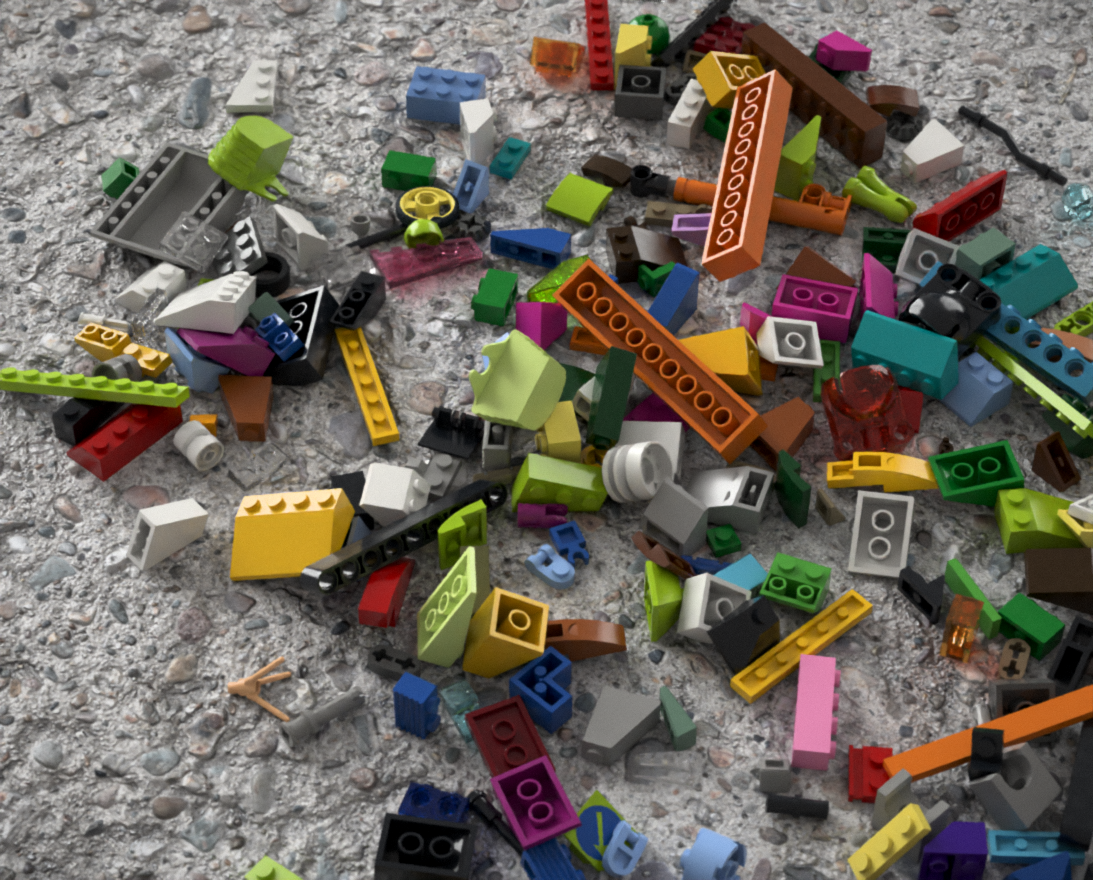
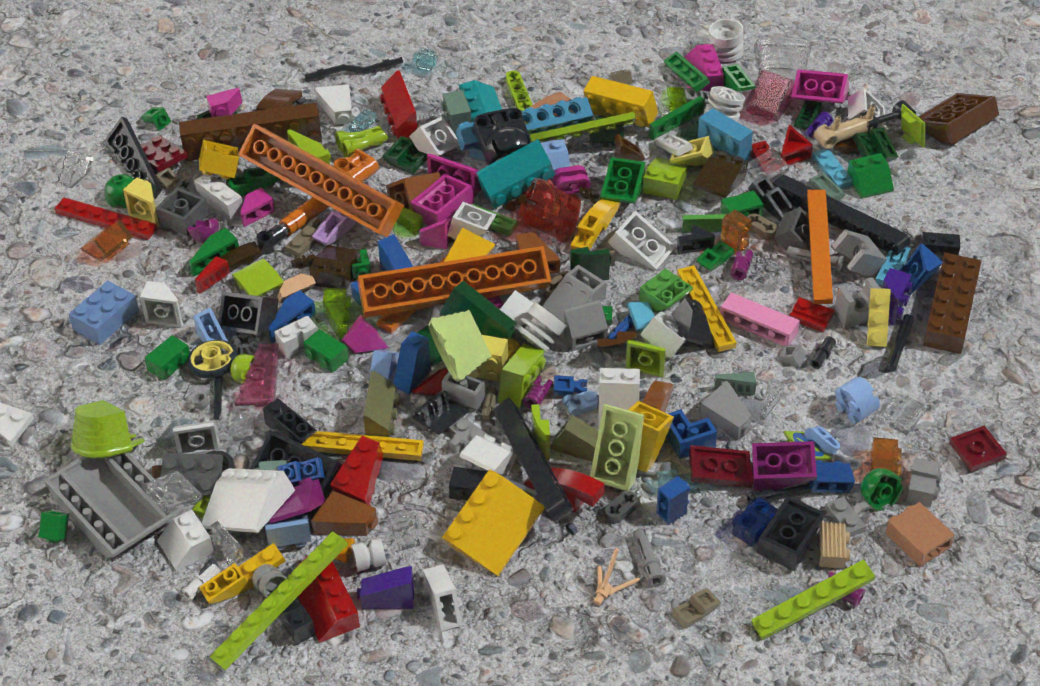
camera: 65 degrees left, 0 degrees up
(150, 478) = (388, 590): none -> dark purple slope
(261, 793) = (696, 608): none -> dark tan slope
(312, 390) = (360, 471): none -> red wedge
(422, 372) = (380, 406): none -> olive slope
(501, 257) = (293, 335): none -> white brick
(508, 204) = (246, 312): none -> black slope
(510, 158) = (189, 301): teal plate -> none
(564, 585) = (618, 388): none -> white slope
(569, 163) = (213, 273): none -> red slope
(581, 231) = (299, 282): none -> light nougat slope
(596, 141) = (214, 246): none -> green slope
(621, 124) = (204, 229): none -> magenta hair
(694, 150) = (256, 206): none -> dark pink slope
(763, 294) = (410, 221): none -> clear neon green slope
(789, 15) = (157, 116): none -> green bracket
(907, 626) = (716, 256): none -> green slope
(915, 187) = (362, 121): none -> clear light blue beam
(915, 660) = (741, 265): none -> magenta hinge
(954, 422) = (571, 179): none -> dark pink brick
(986, 752) = (838, 253): black slope -> none

